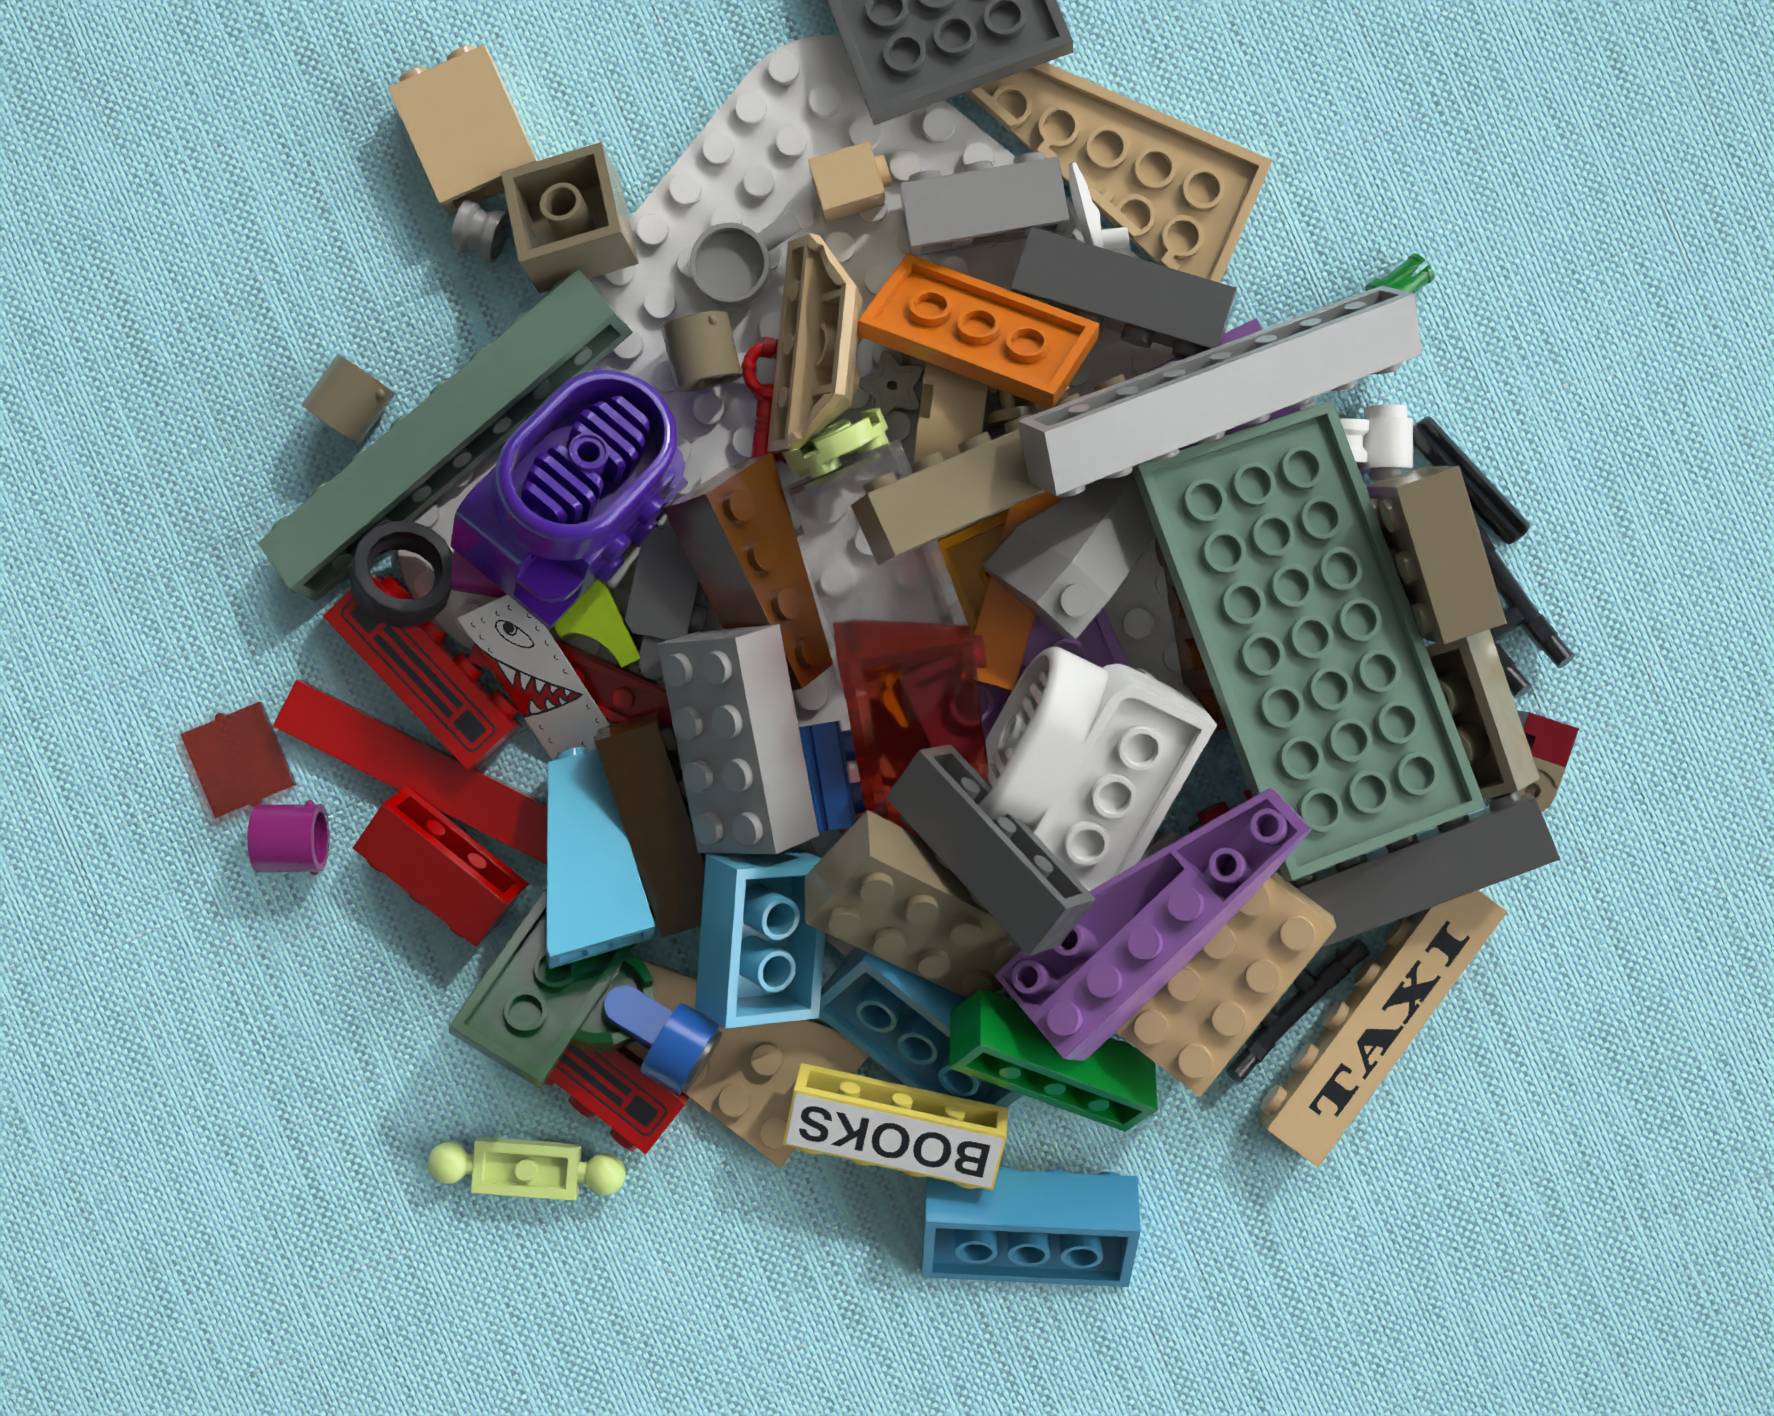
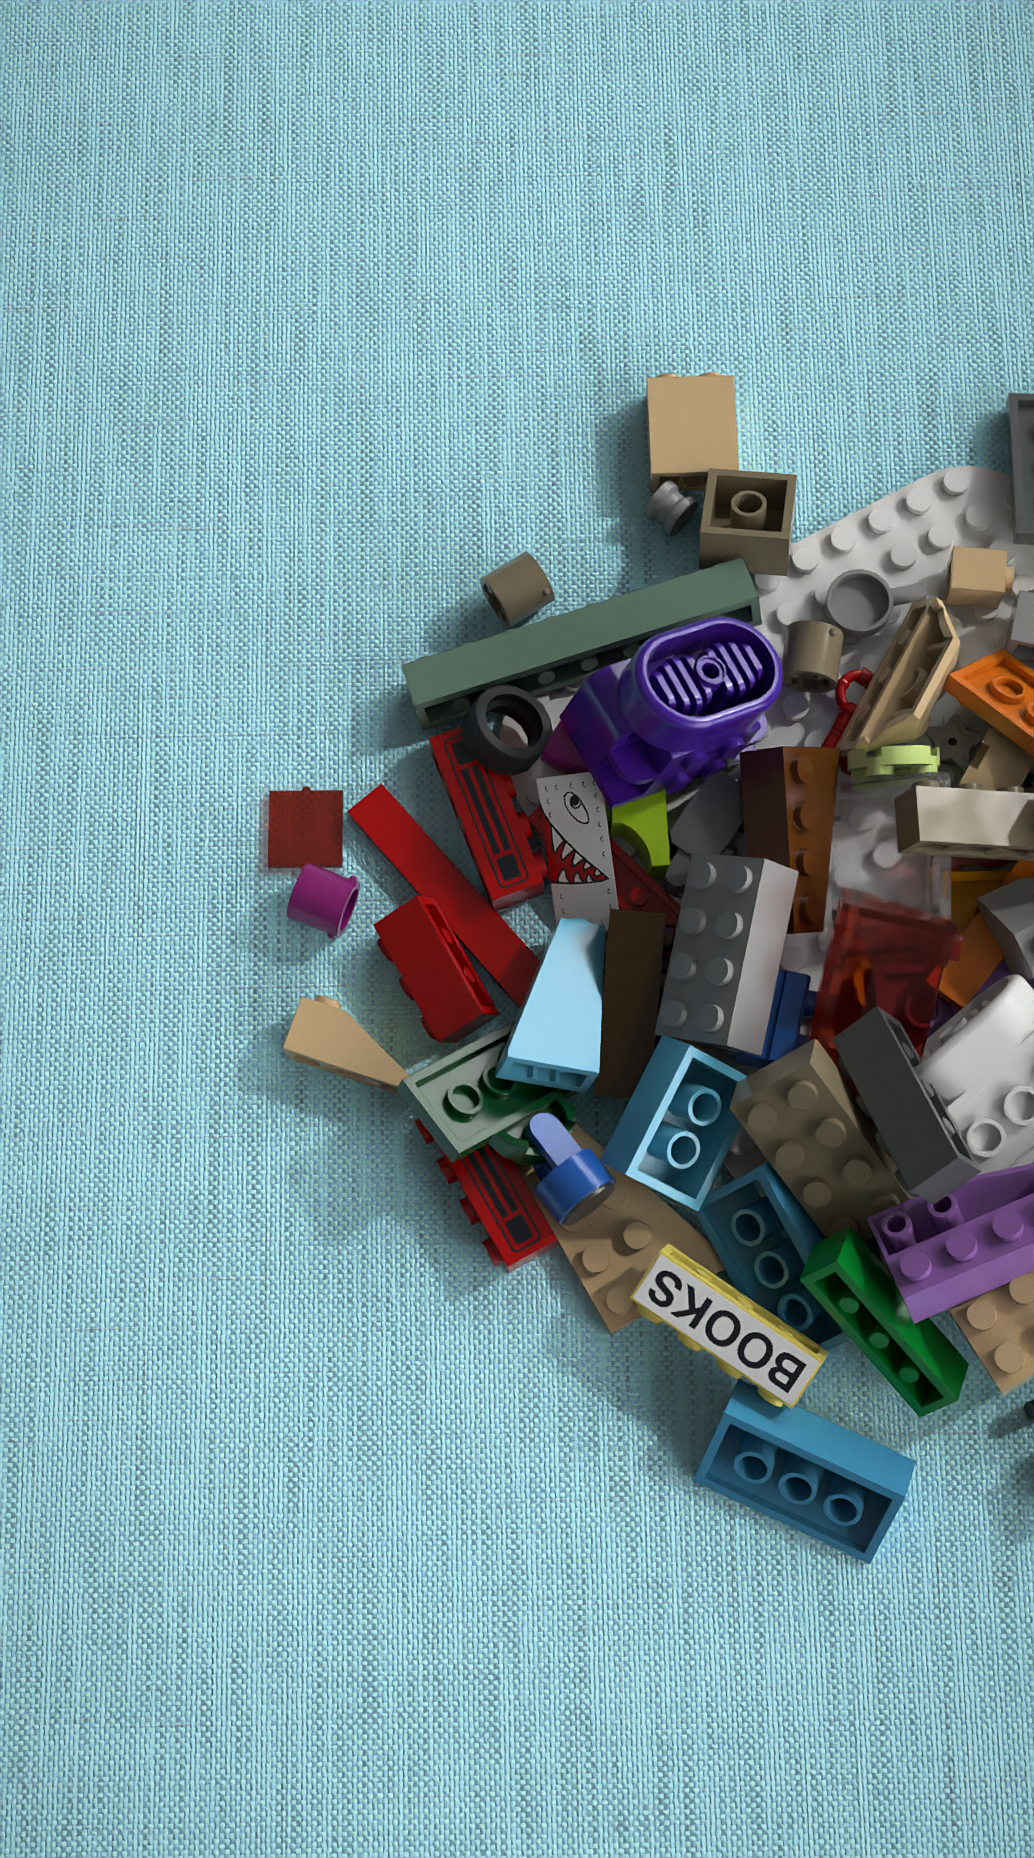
camera: 25 degrees right, 15 degrees down
(375, 985) = (336, 1043): none -> tan slope
(526, 1168) = (399, 1246): yellowish green plate -> none

